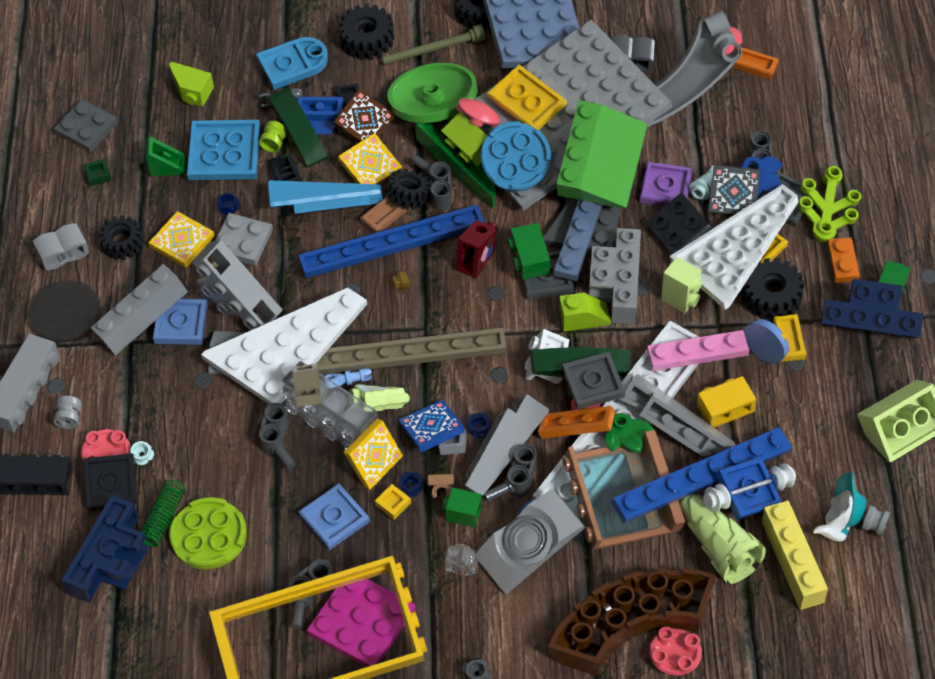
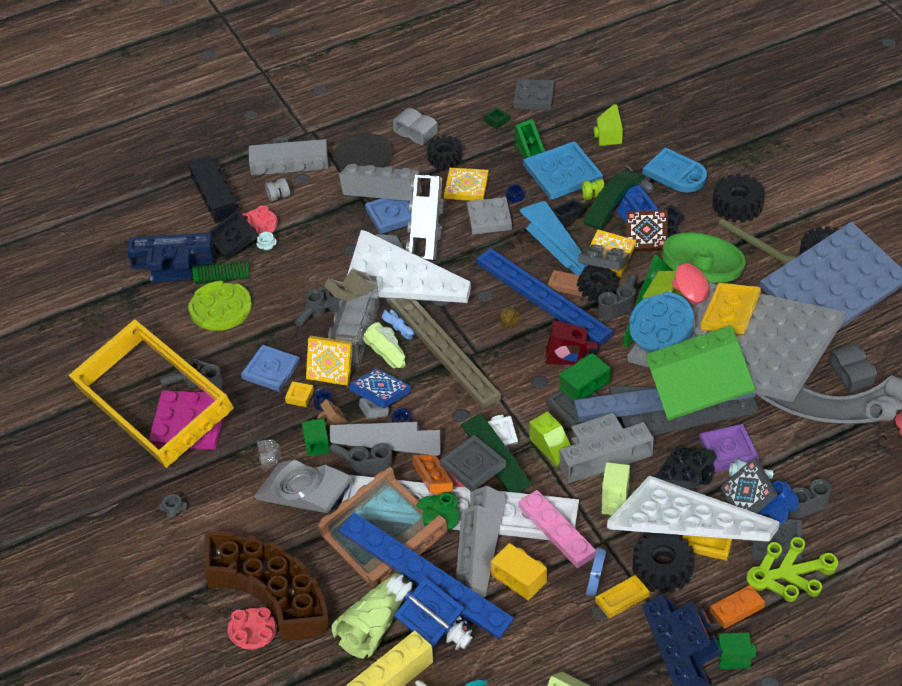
camera: 65 degrees right, 10 degrees down
(387, 166) = (605, 258): none -> dark grey plate

